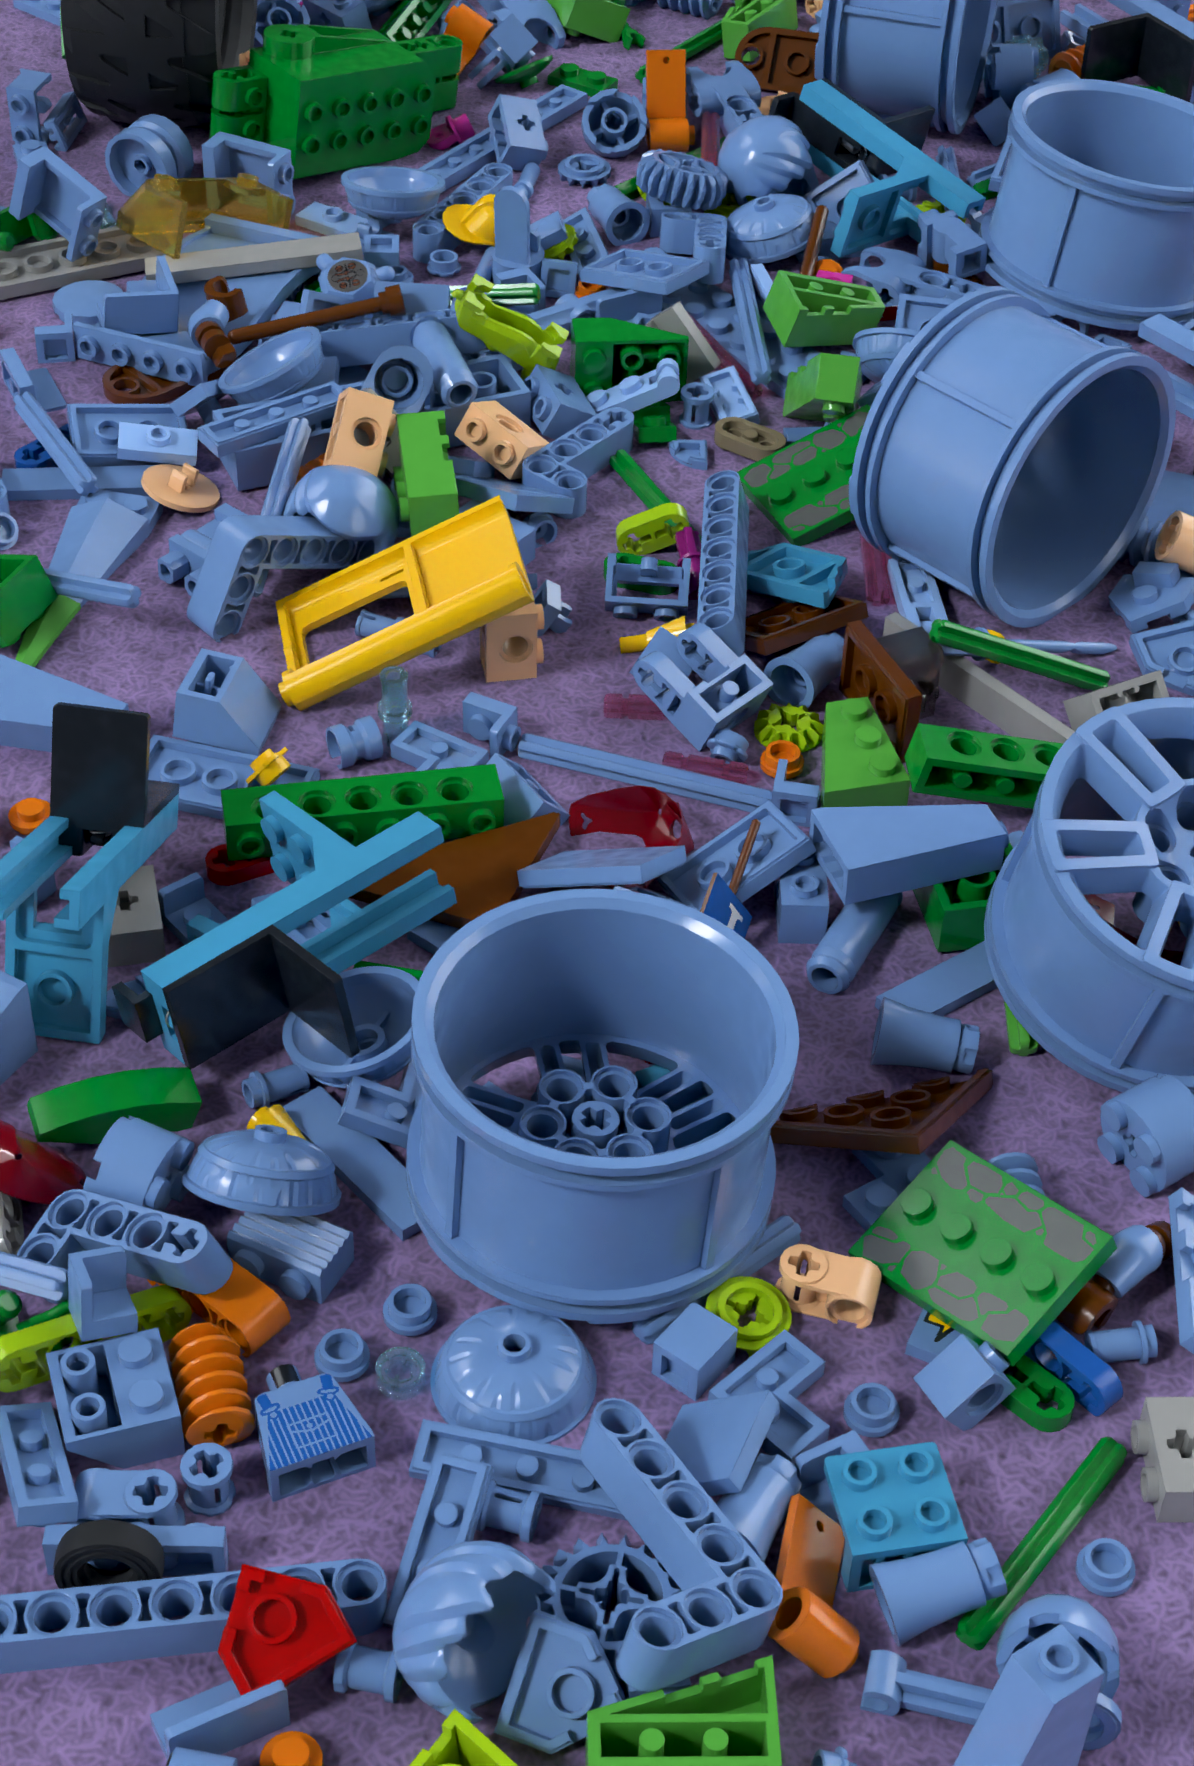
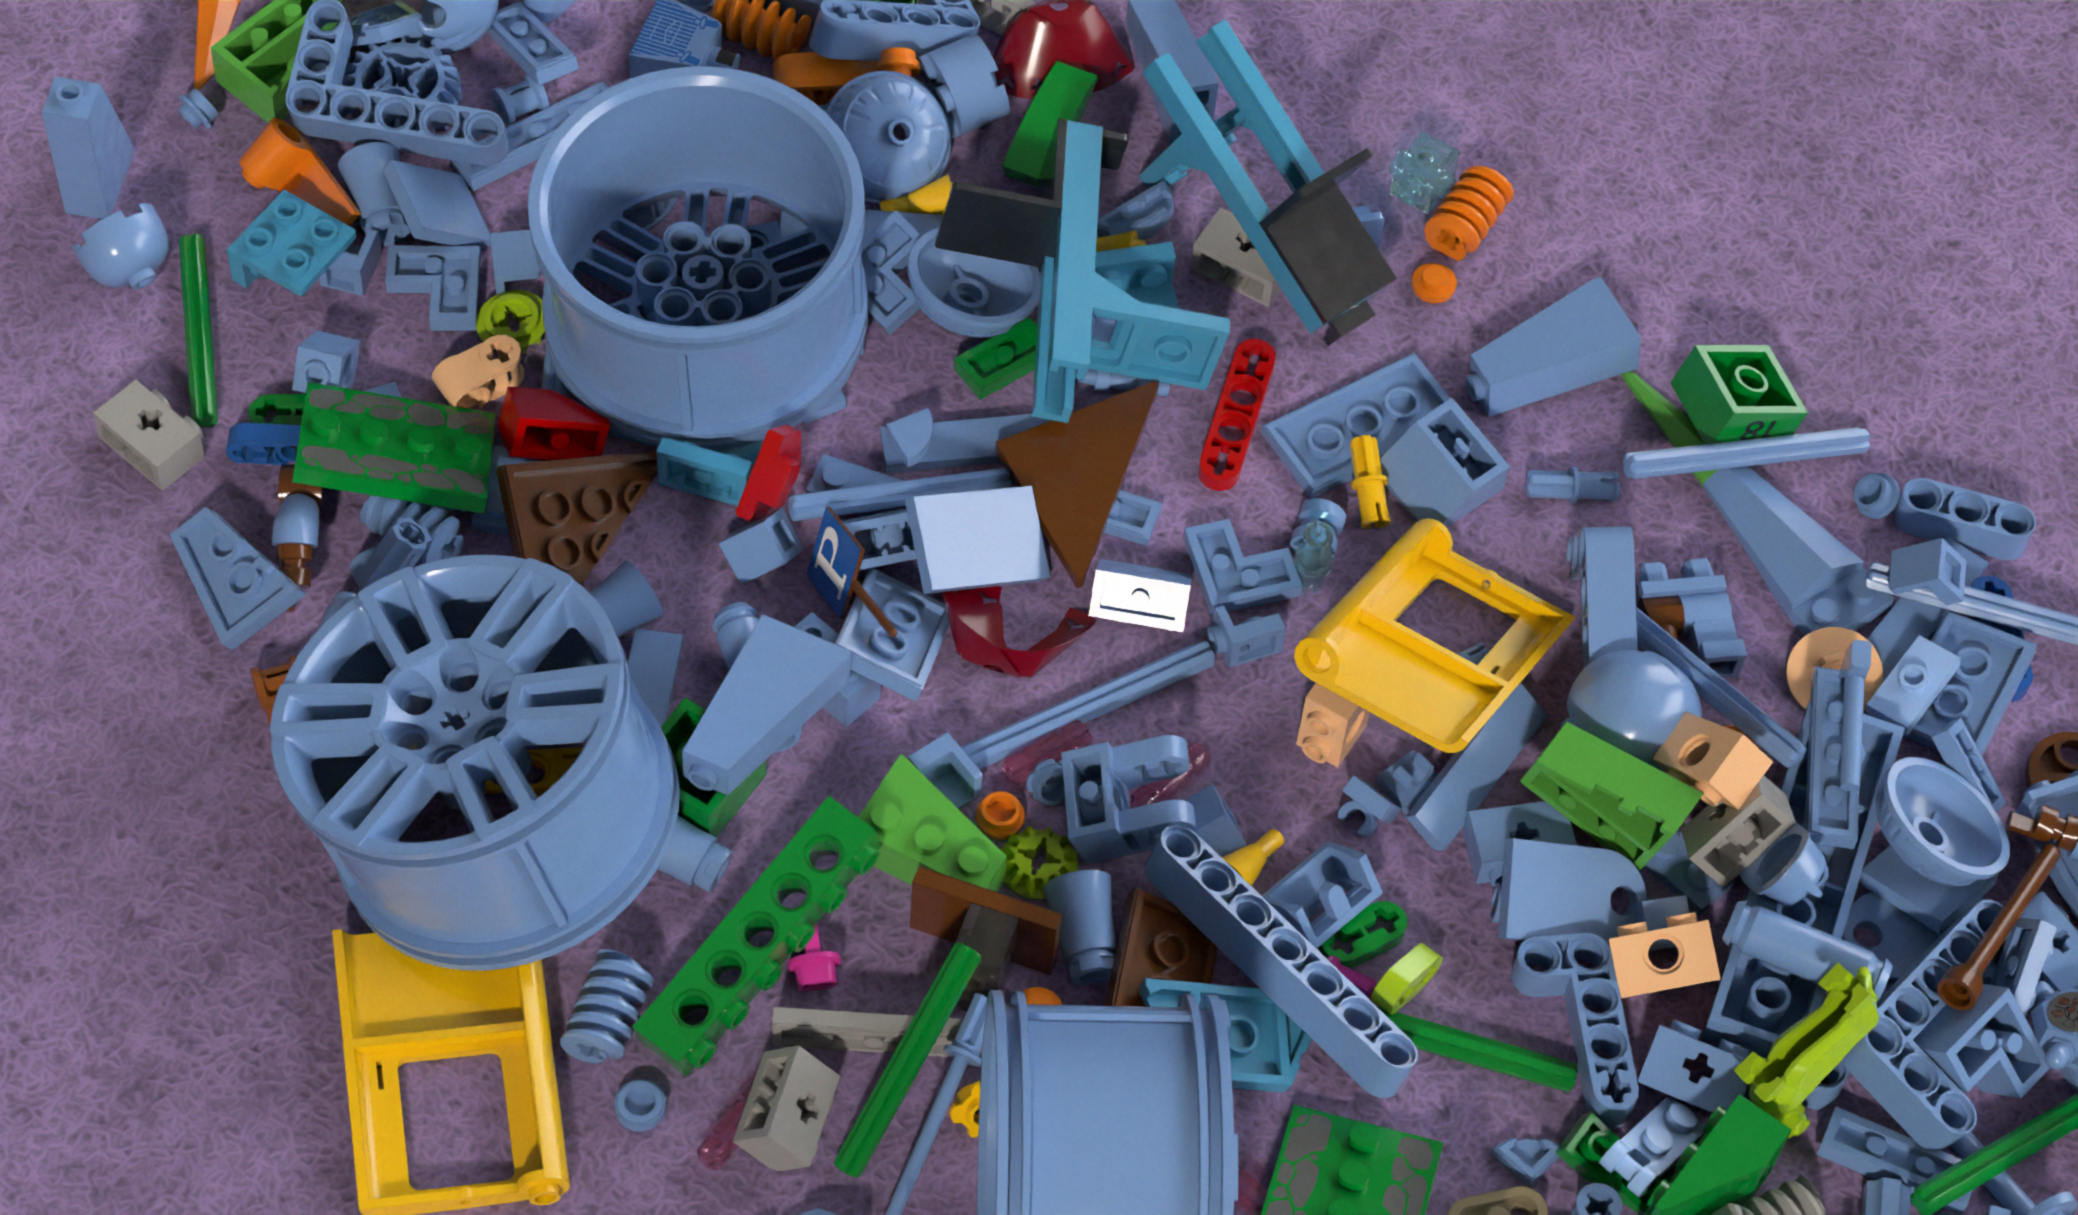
camera: 130 degrees right, 15 degrees up
(70, 446) = (1929, 565): none -> medium blue panel
(154, 656) = (1572, 485): none -> medium blue axle
(179, 1201) = (899, 60): none -> orange plate
(182, 902) = (1216, 297): medium blue bracket -> none
(213, 402) = (1854, 671): none -> medium blue piece
(268, 767) = (1324, 433): yellow plate -> none
(281, 735) = (1369, 482): none -> yellow axle
(361, 807) = (1150, 535): green brick -> none
(826, 1193) = (550, 426): none -> red slope
(871, 1410) = (376, 325): medium blue plate -> none
(894, 1687) = (209, 177): medium blue piece -> none
(936, 1586) = (223, 221): medium blue plant -> none
(1068, 1175) = (398, 549): none -> medium blue piece
(1105, 1567) = (145, 340): medium blue plate -> none
(1123, 1343) = (254, 496): medium blue pin -> none

